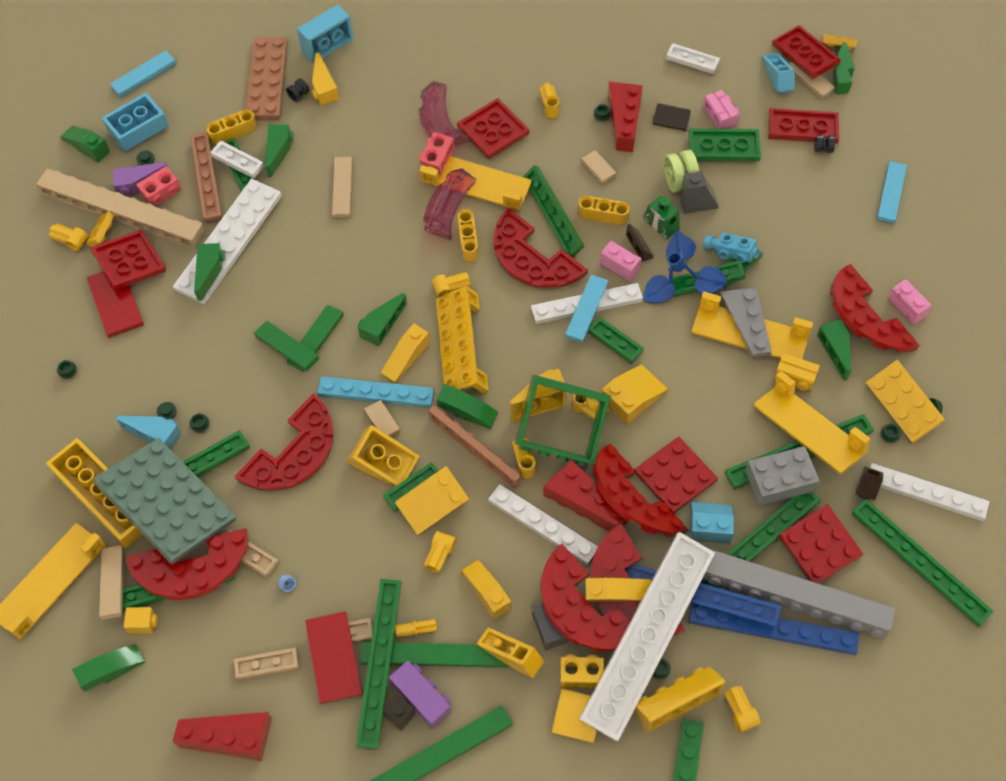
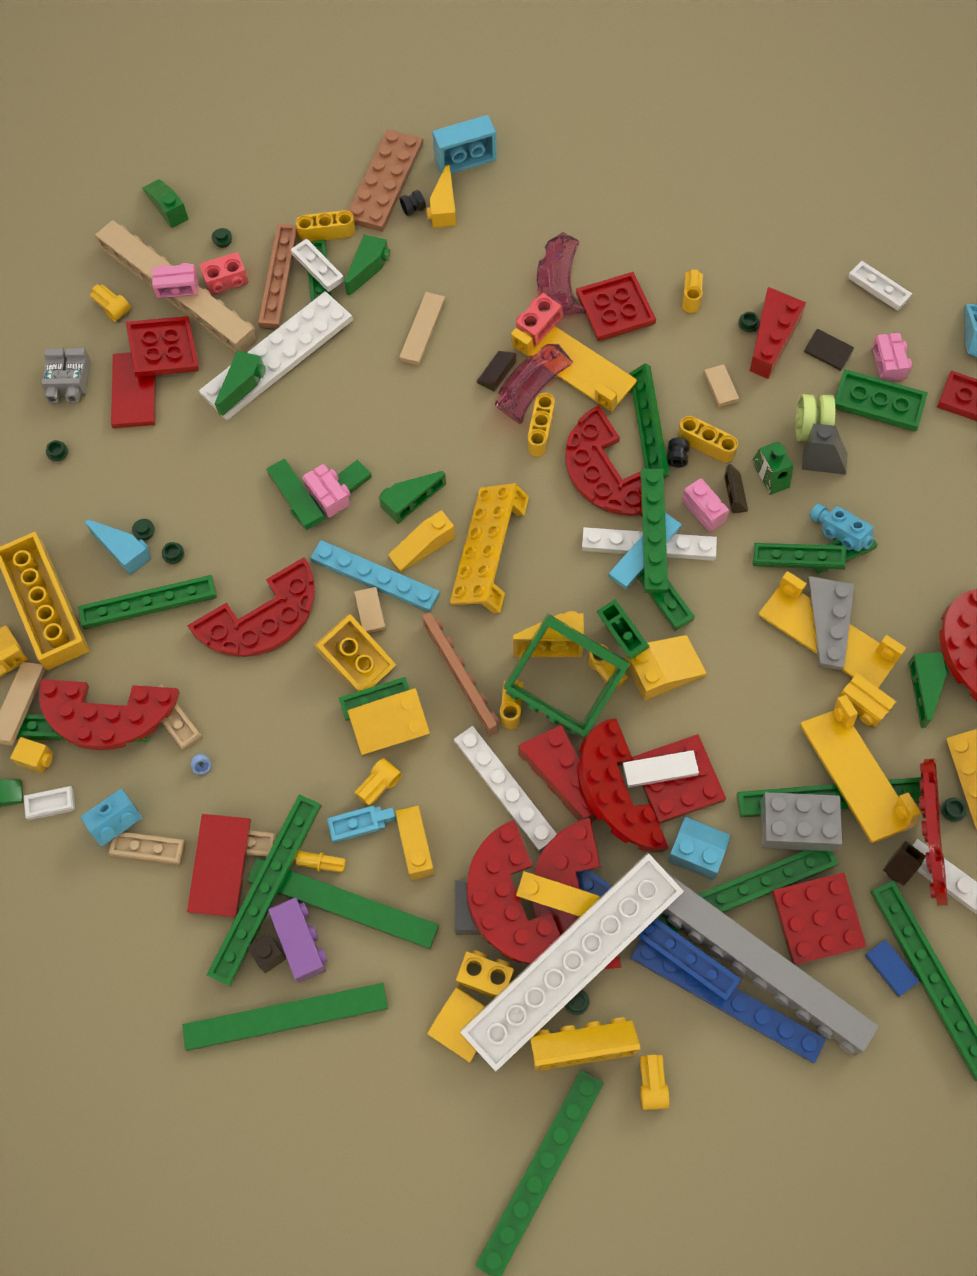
camera: 20 degrees right, 5 degrees up
(52, 308) = (65, 374): none -> light grey hips
(103, 224) = (141, 309): yellow plate -> none
(122, 202) = (175, 280): none -> bright pink brick
(127, 178) = (199, 252): medium lavender slope -> none
(135, 122) = (224, 192): medium azure brick -> none
(143, 73) = (253, 140): medium azure tile -> none
(164, 500) = (101, 630): sand green plate -> none
(168, 655) = (49, 803): none -> white tile
(226, 735) = (79, 915): red wedge -> none
(228, 647) = (111, 817): none -> medium azure brick
(312, 334) = (326, 490): none -> bright pink brick
(415, 203) = (497, 370): none -> dark brown slope
(436, 587) = (359, 822): none -> medium azure hinge
(444, 284) = (494, 474): yellow piece -> none
(466, 406) = (467, 624): green slope -> none
(511, 652) = (413, 926): yellow slope -> none
(584, 228) = (678, 452): none -> black wheel
(589, 291) = (654, 531): none -> green plate
(592, 373) = (622, 629): none -> green slope
(660, 470) = (660, 769): none -> white tile
(679, 249) = (783, 510): blue plant -> none
(883, 451) = (931, 830): none -> red plate
(887, 564) = (891, 968): none -> blue tile

